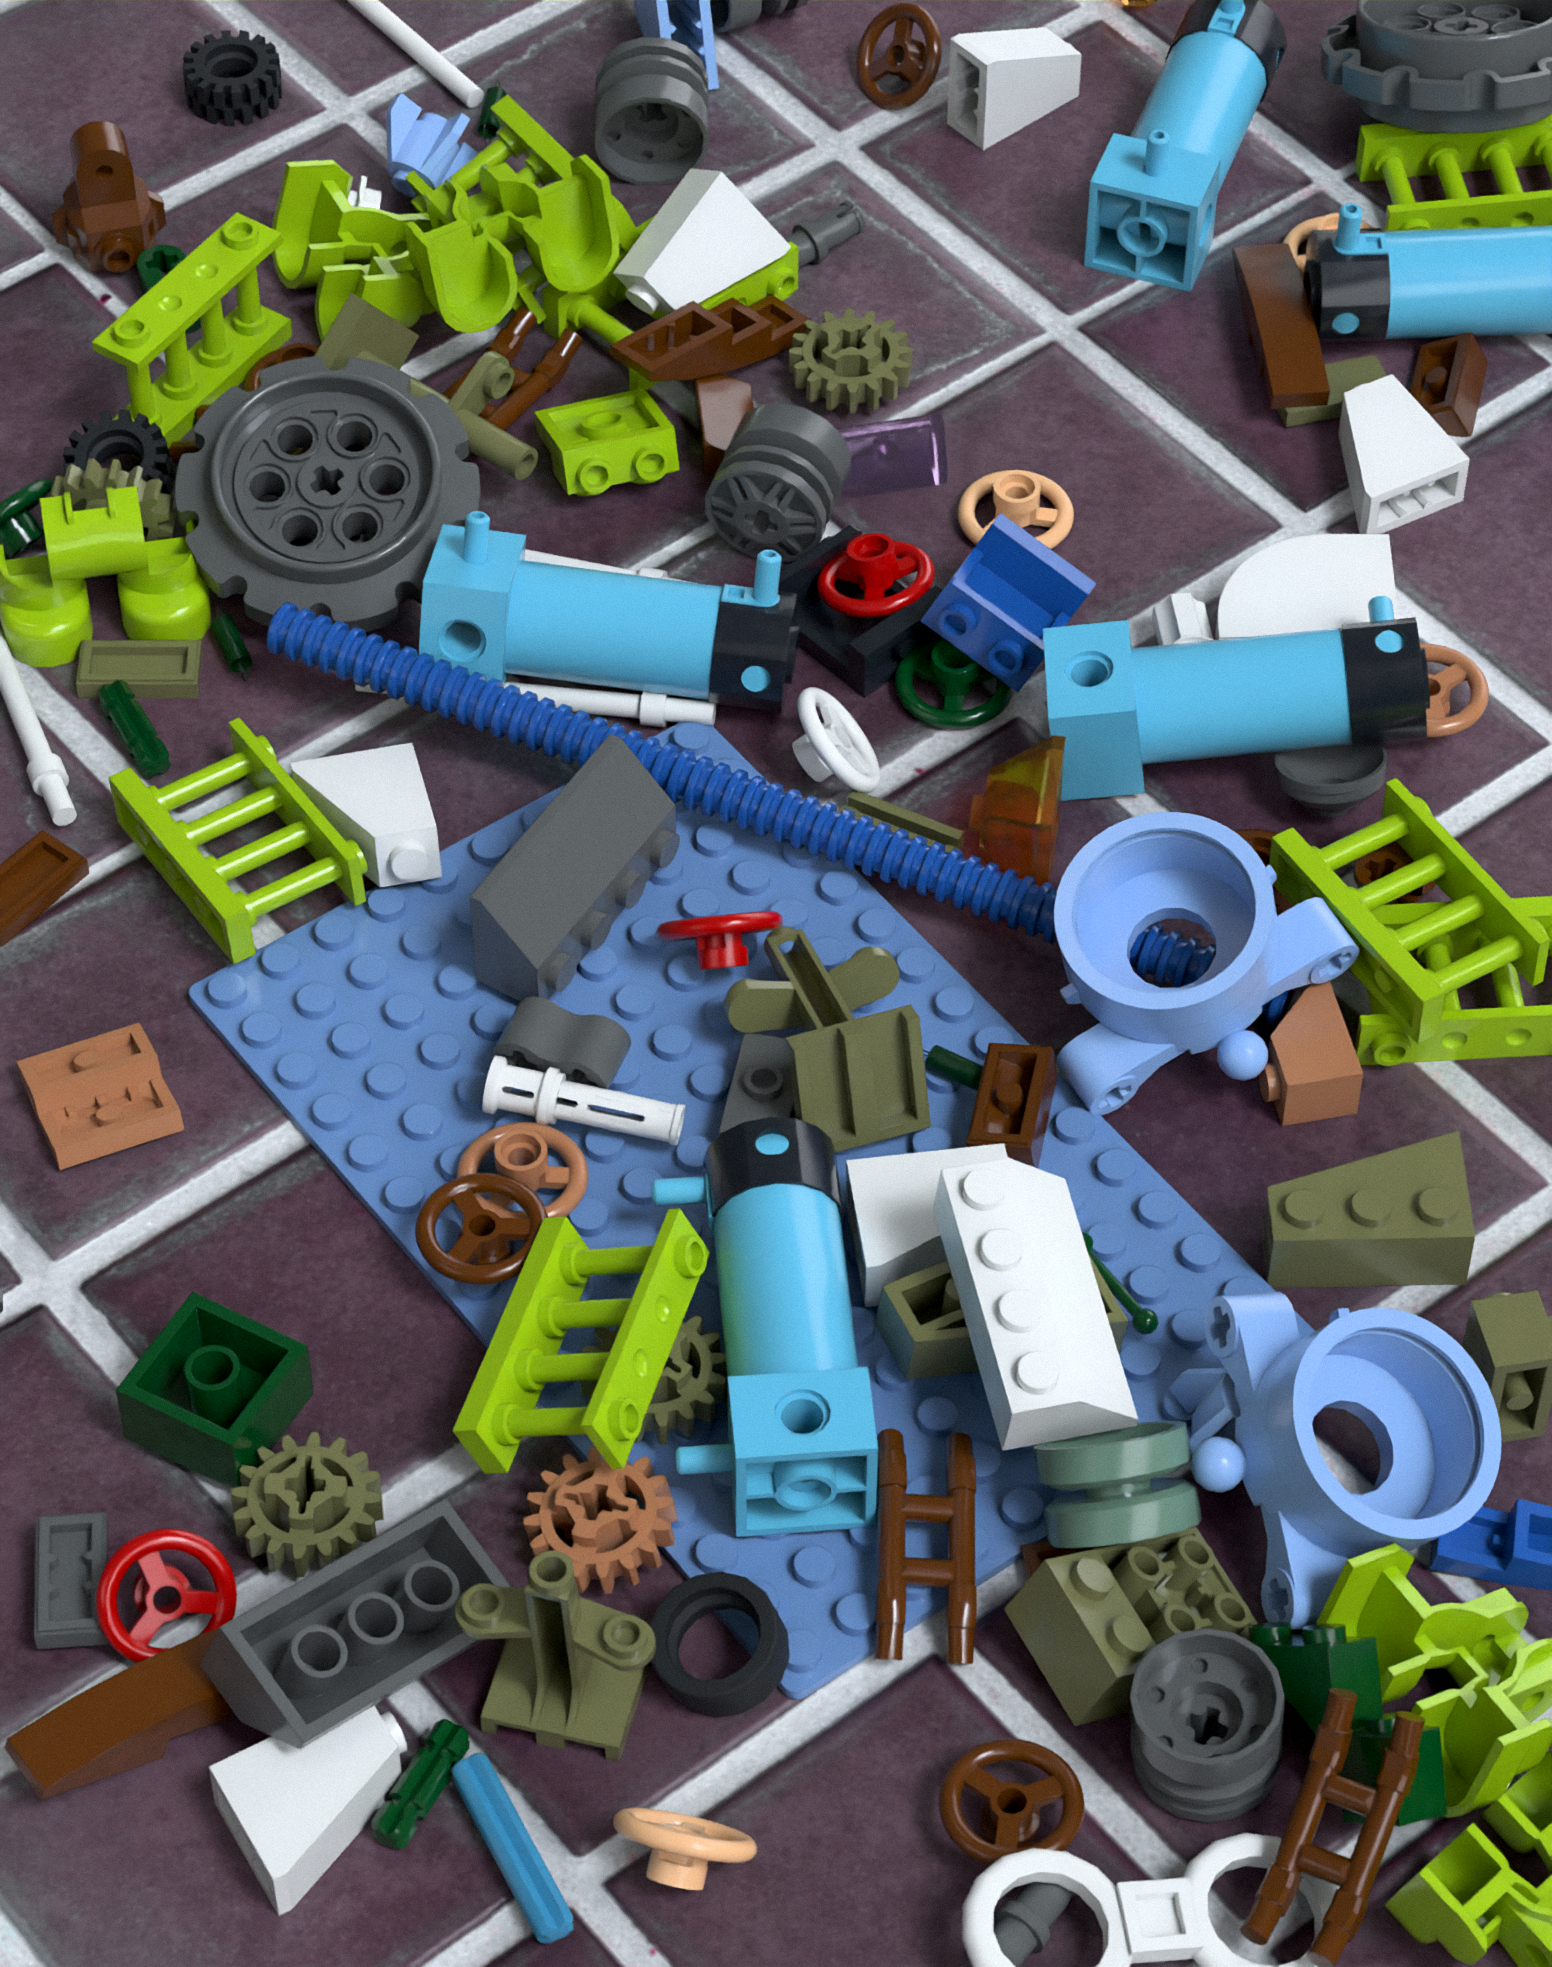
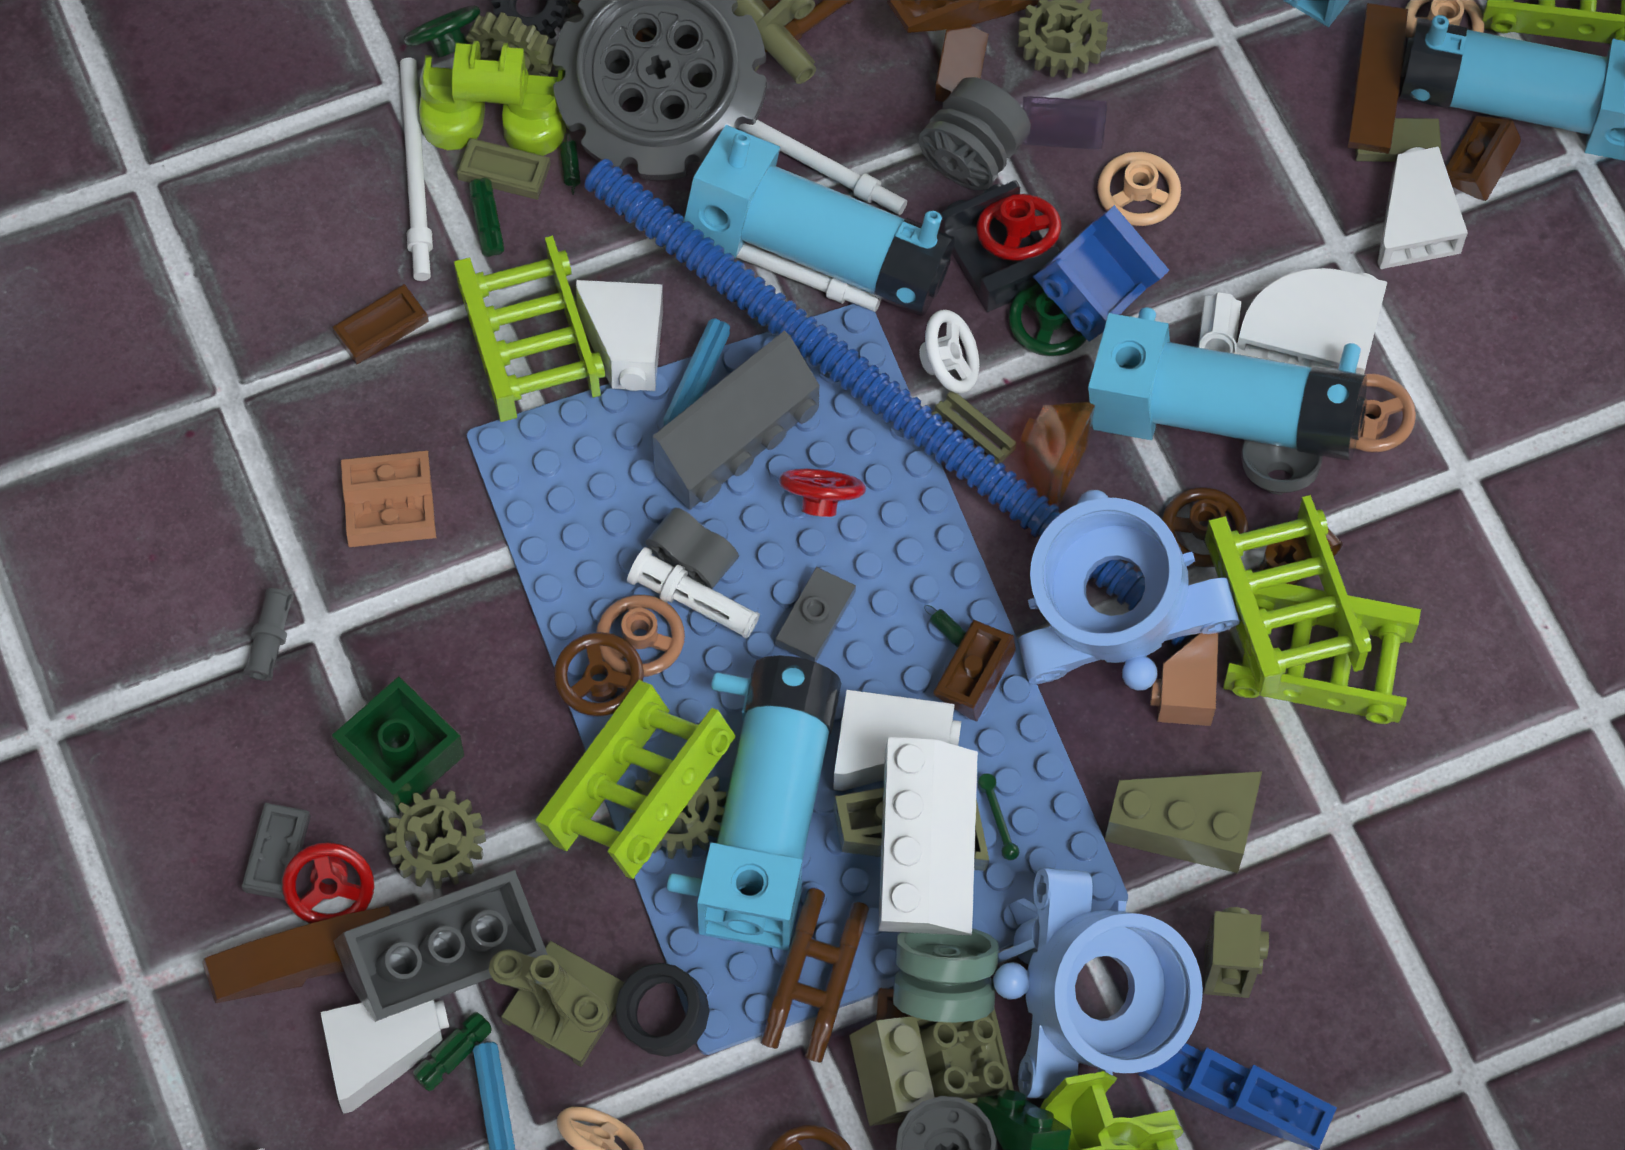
camera: 15 degrees right, 15 degrees up
(497, 824) = (699, 368): none -> dark azure axle
(605, 1524) = (607, 916): nougat gear -> none
(608, 442) = (871, 63): lime plate -> none
(847, 1074) = (872, 627): olive piece -> none

